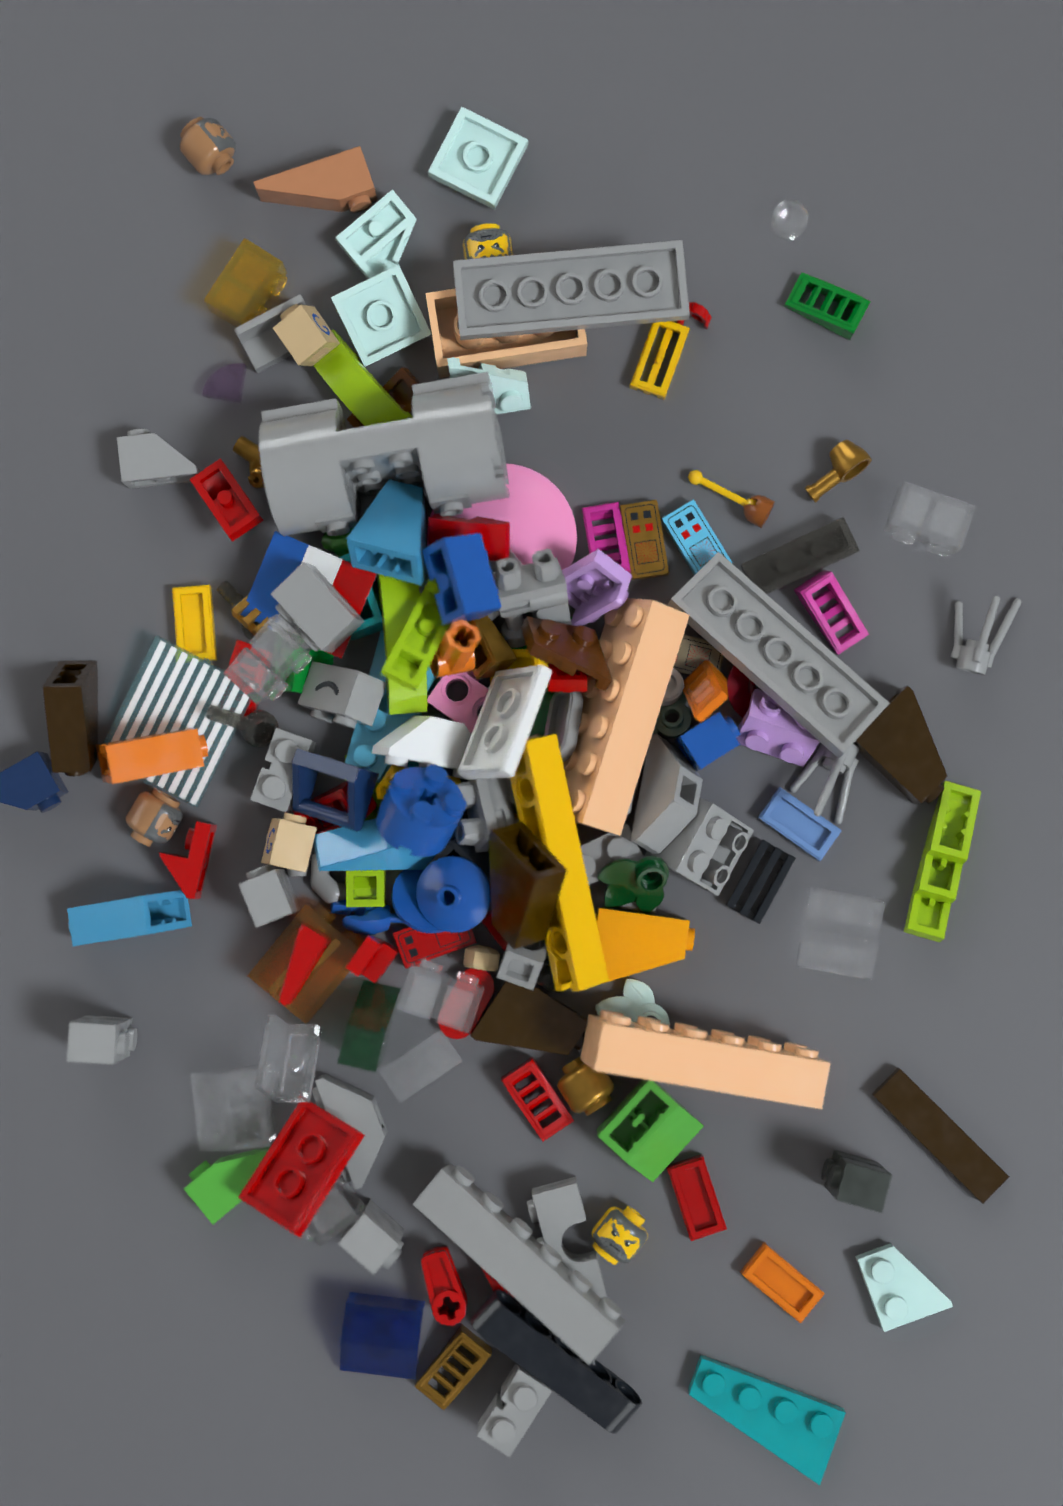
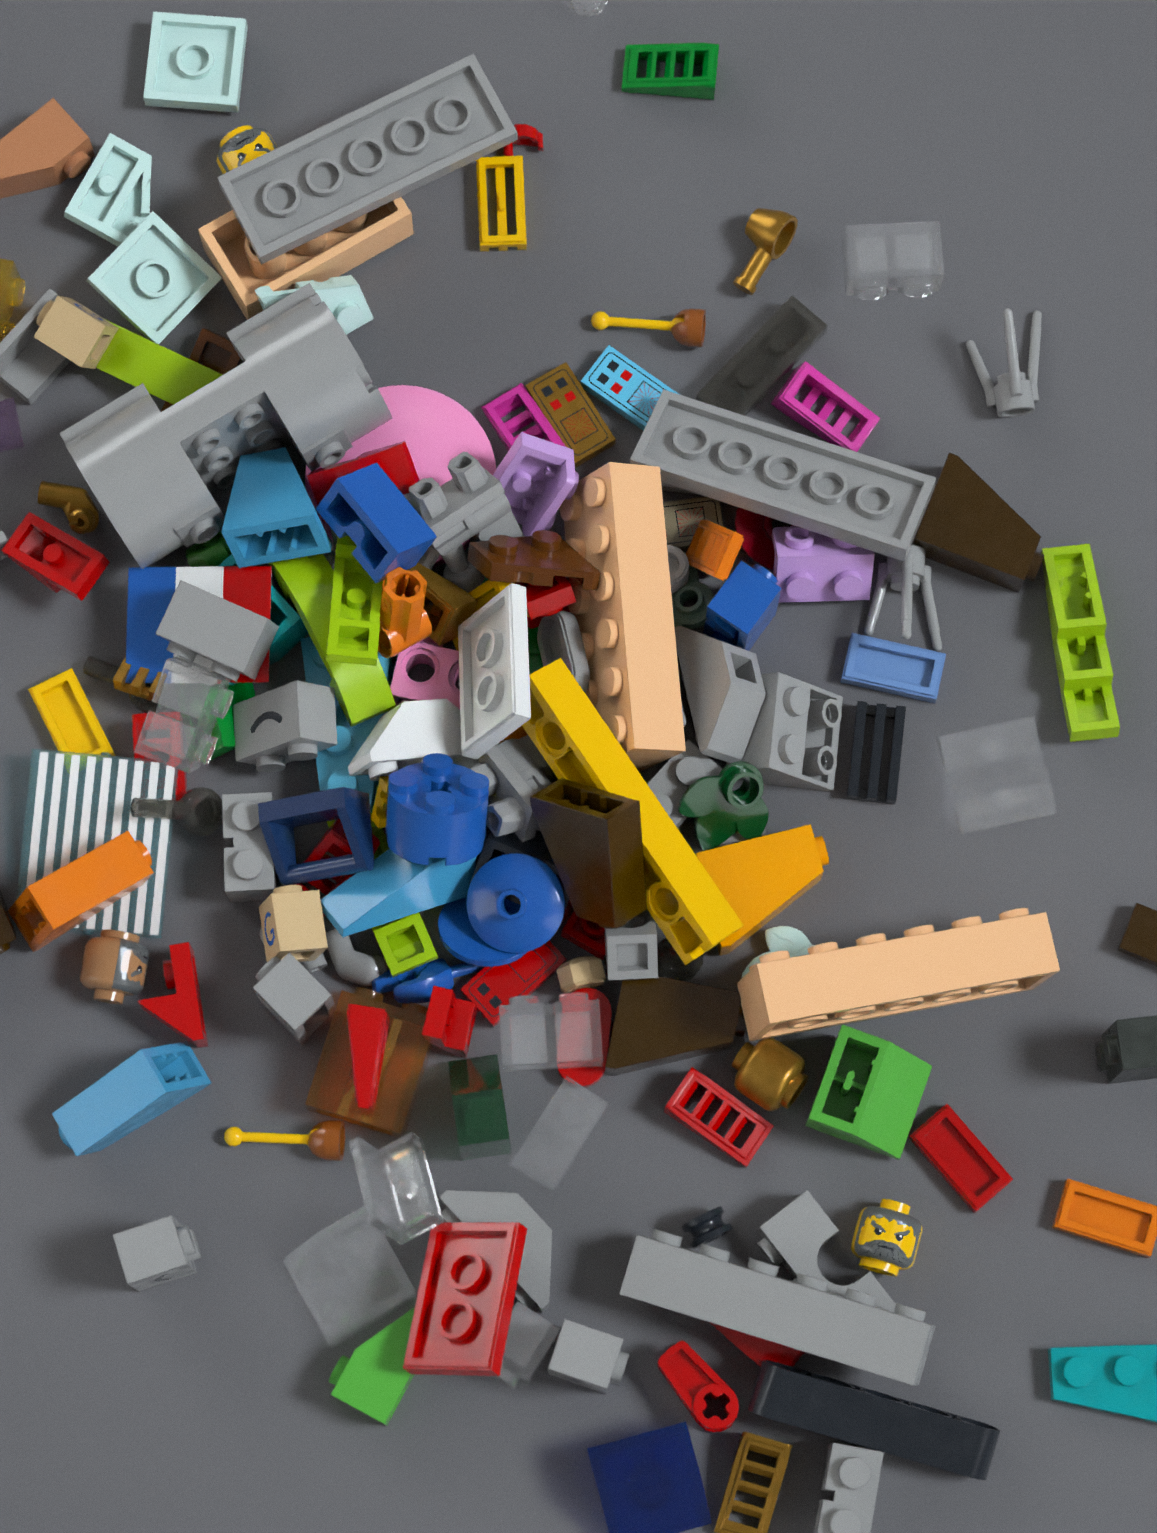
camera: 20 degrees left, 10 degrees down
(253, 1002) = (324, 1140): none -> hinge
(496, 1175) = (707, 1227): none -> black bush

